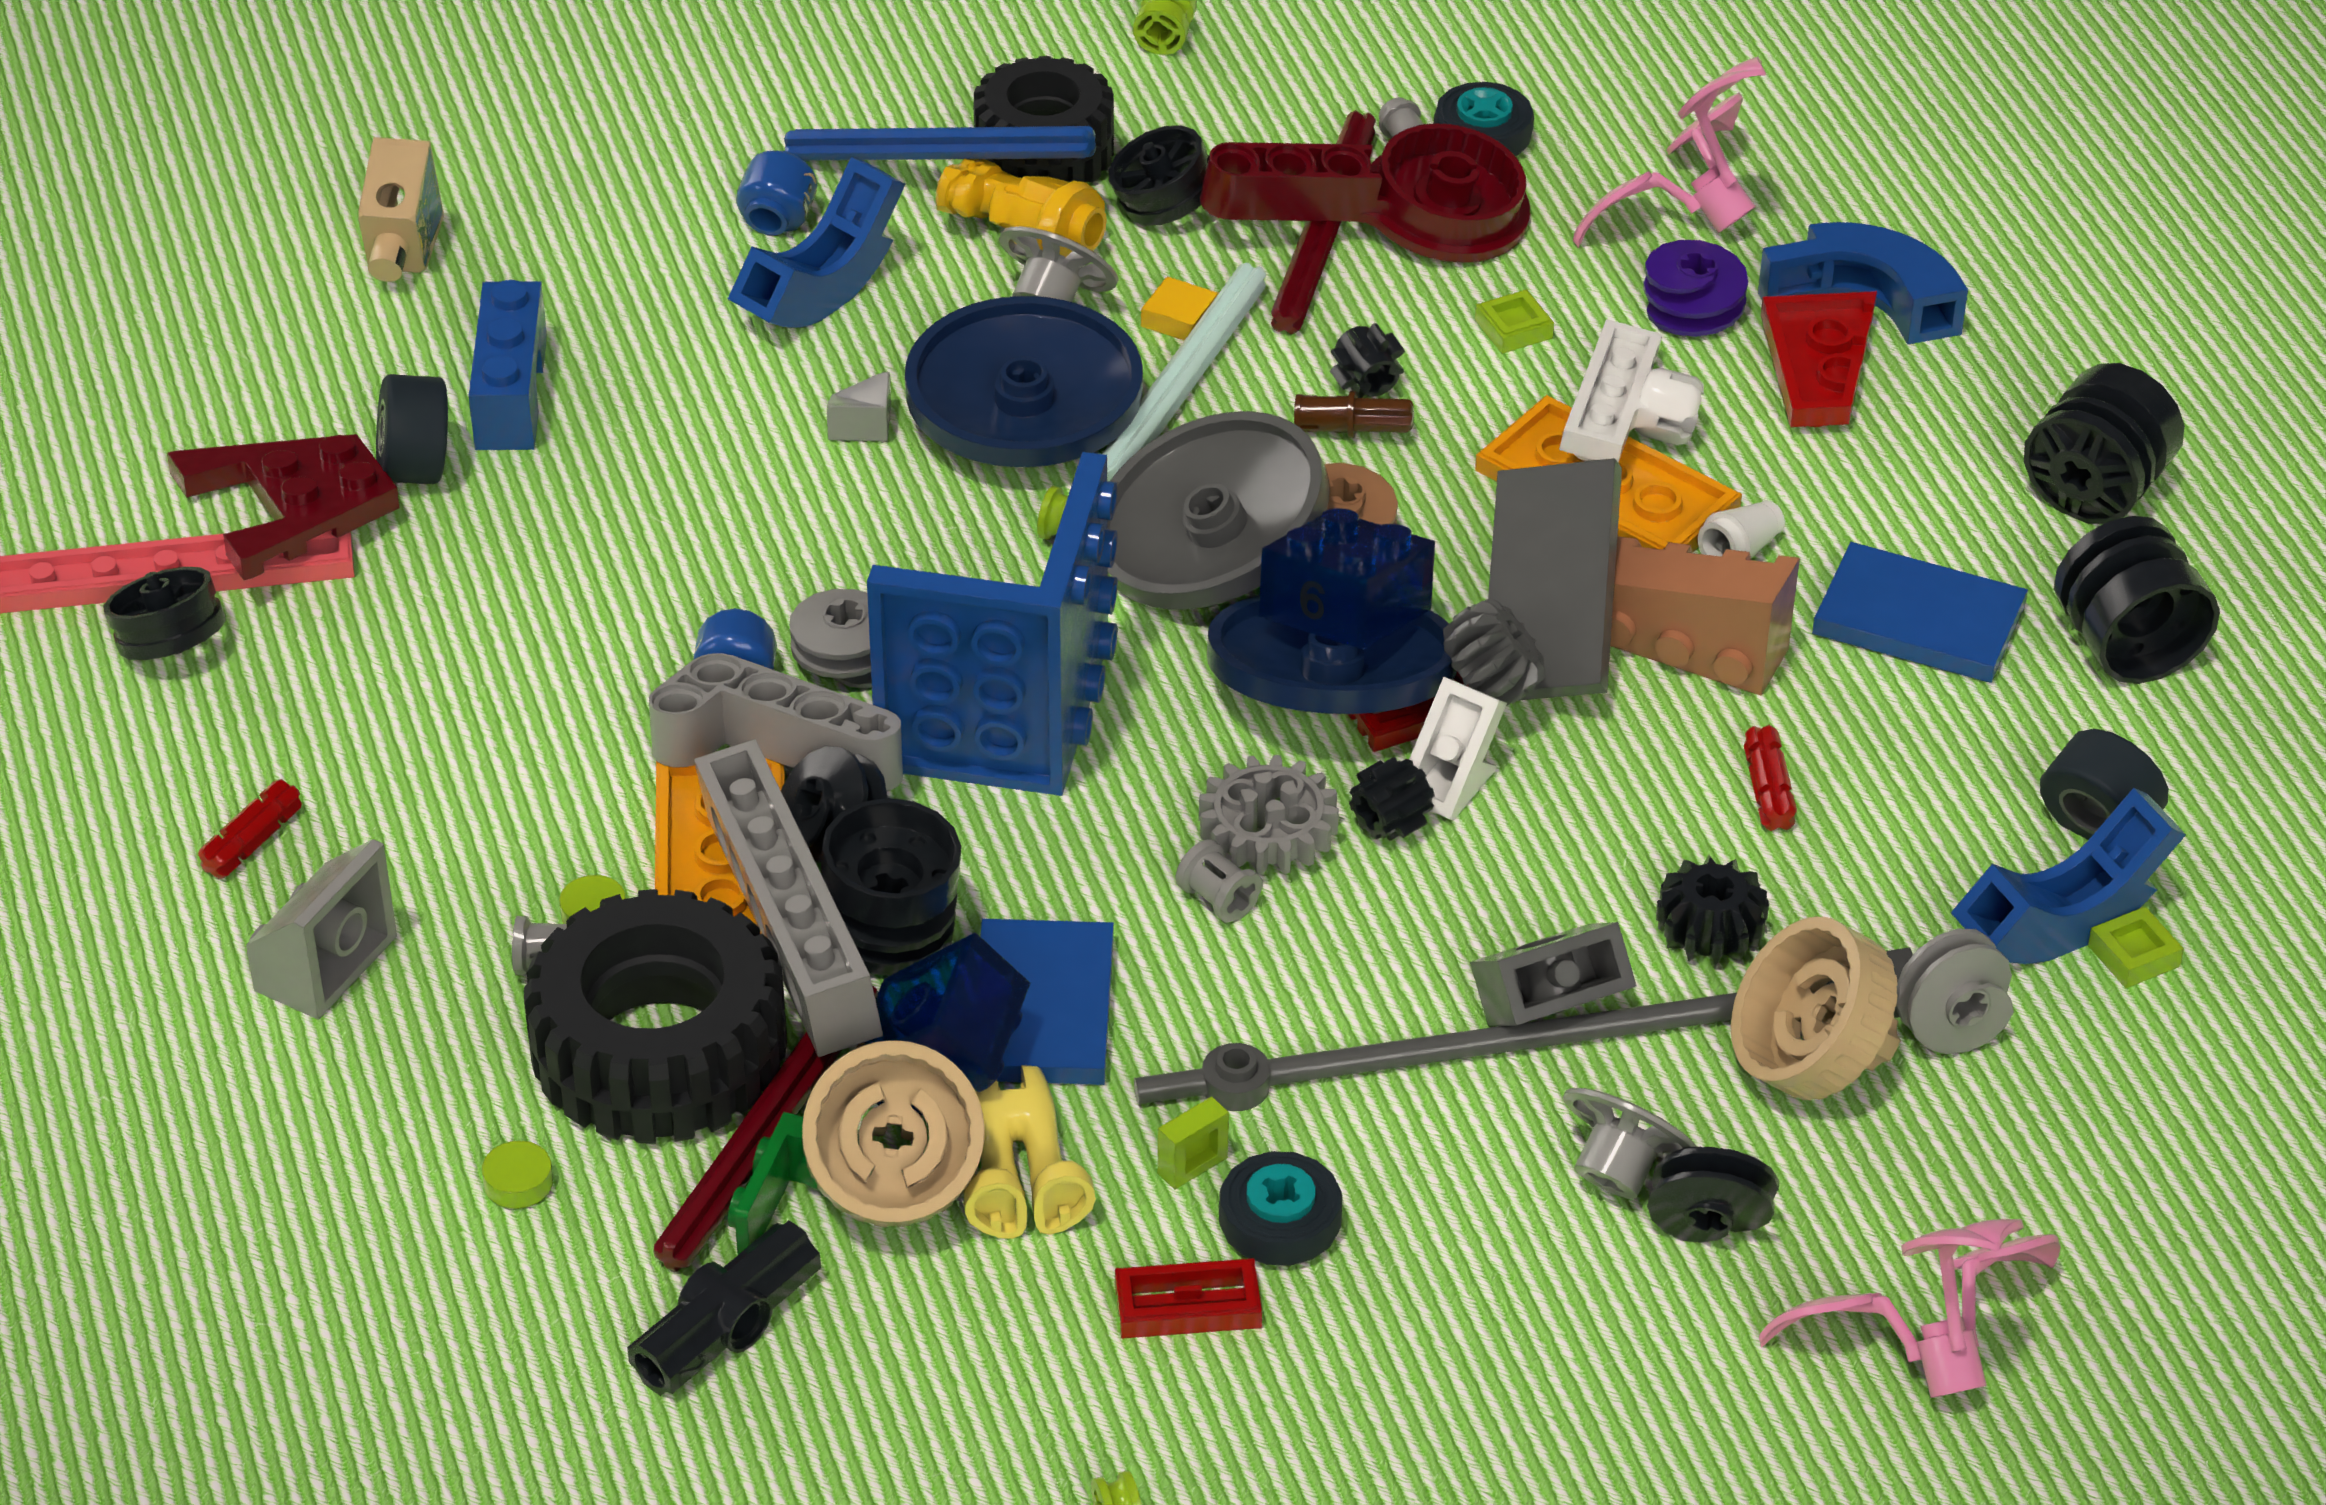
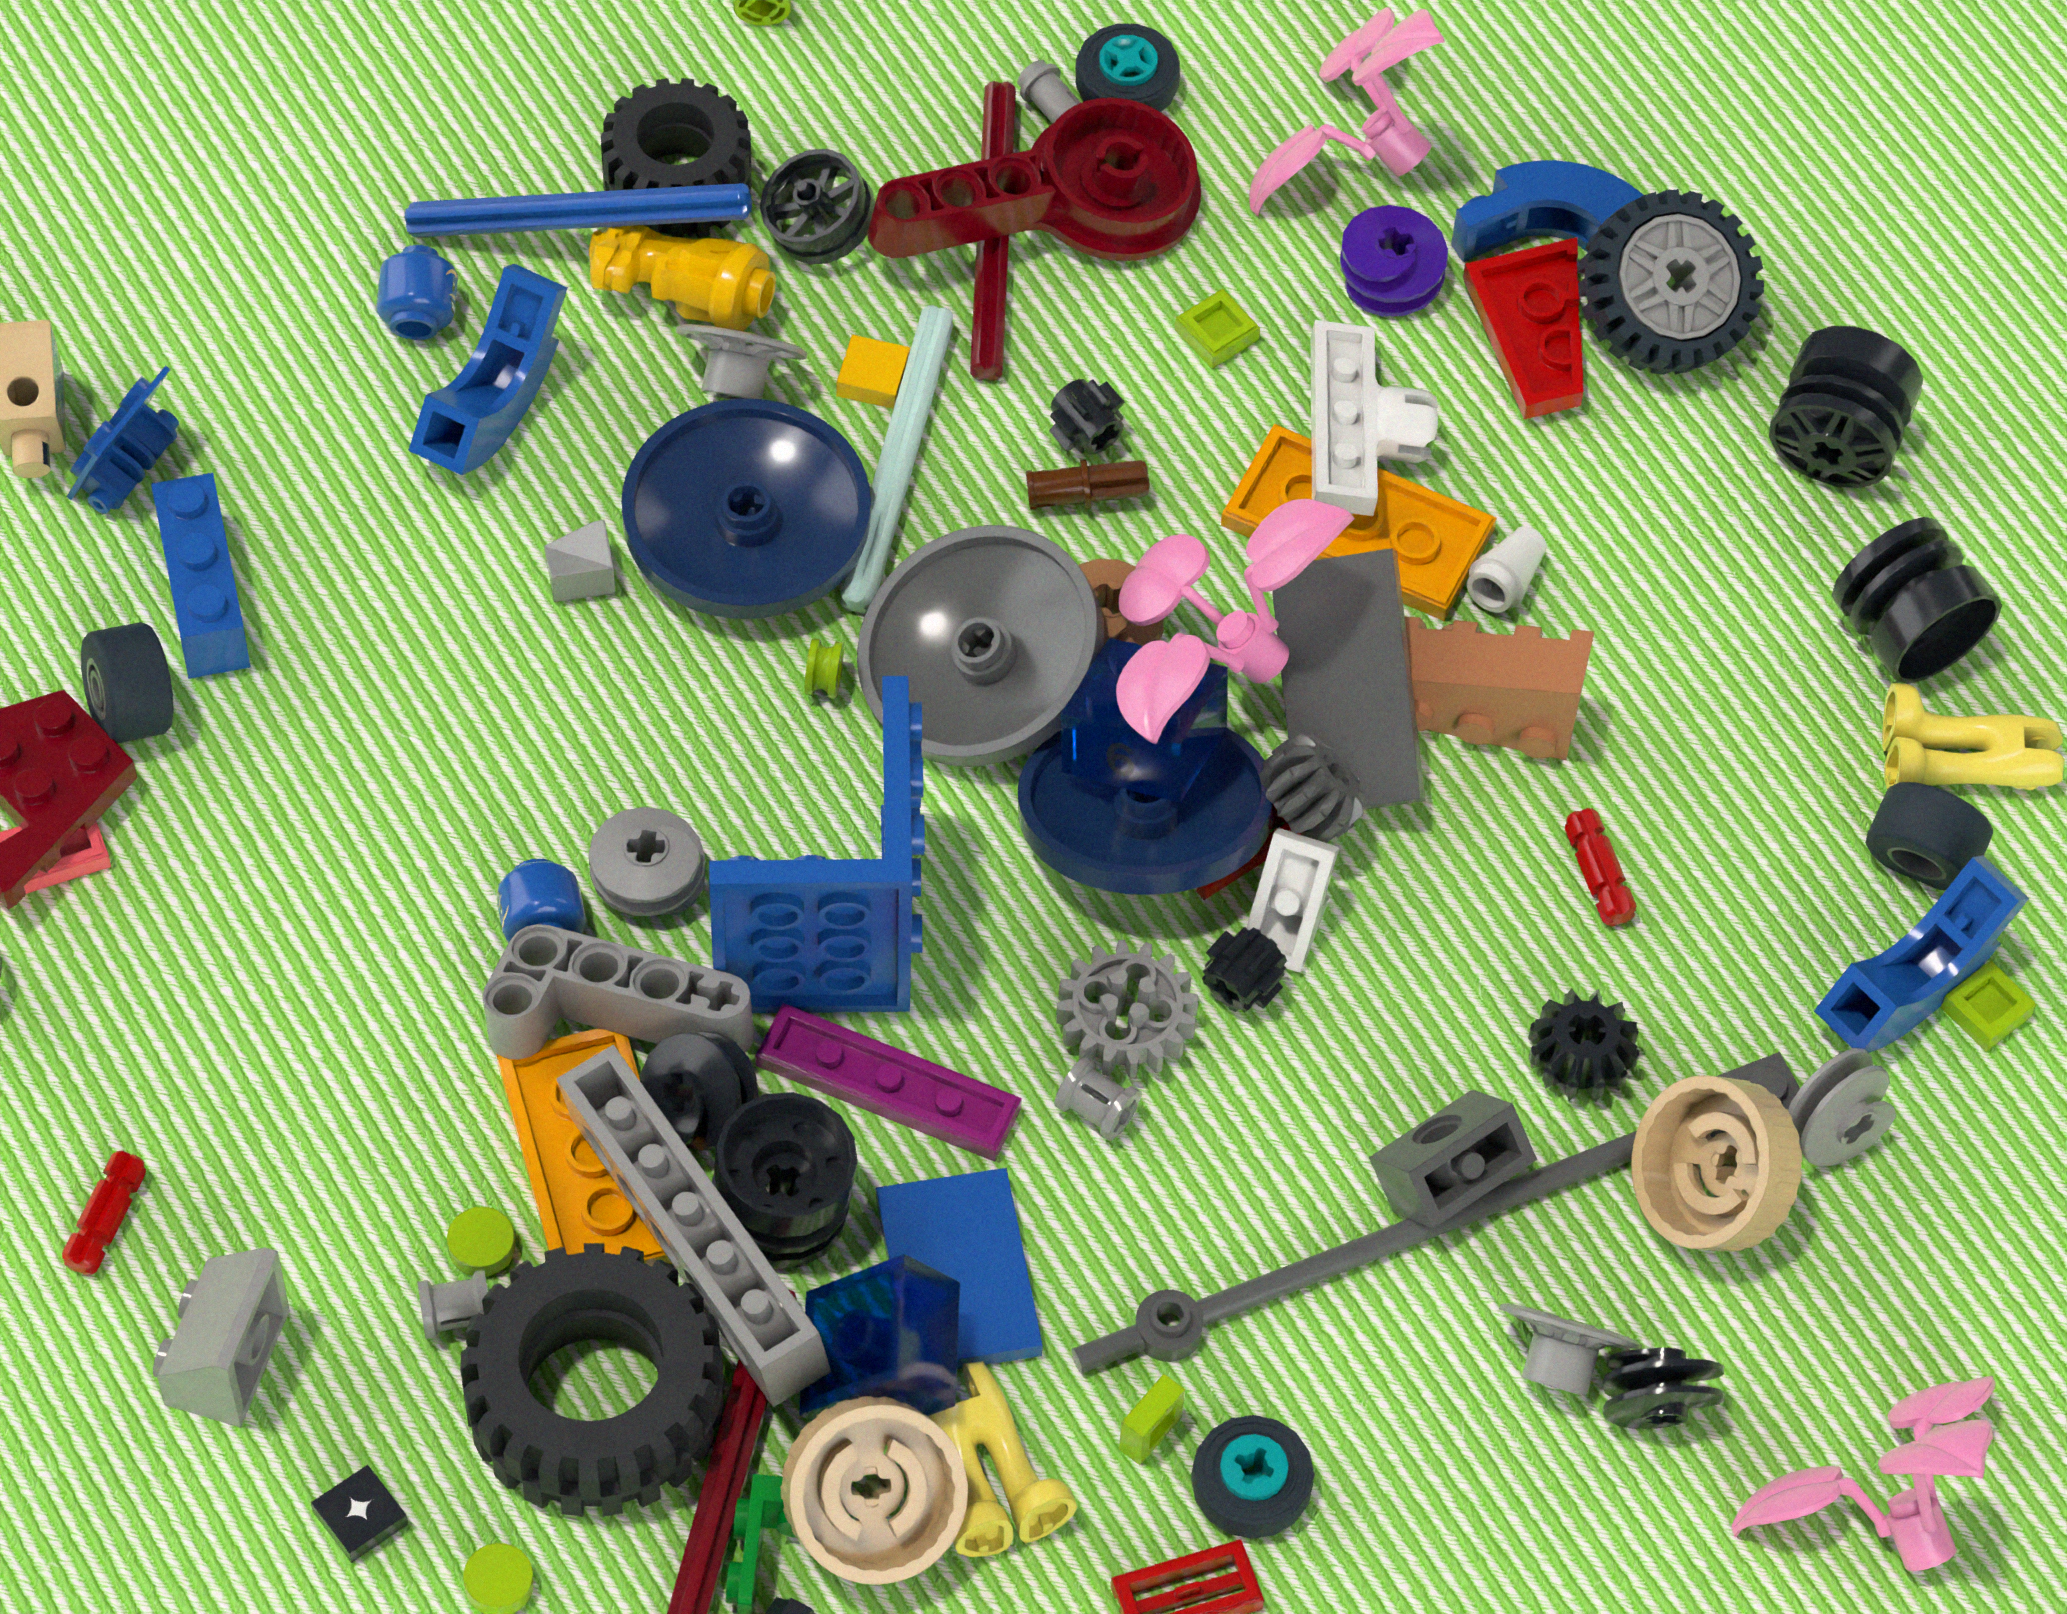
camera: 15 degrees left, 15 degrees up
(403, 1100) = (359, 1513): none -> black tile
(470, 255) = (124, 448): none -> blue hinge
(1031, 845) = (888, 1082): none -> magenta tile
(1457, 520) = (1167, 673): none -> bright pink plant
(1920, 612) = (1701, 633): blue tile -> none
(1950, 366) = (1636, 257): none -> wheel
(2175, 737) = (2014, 747): none -> light yellow piece

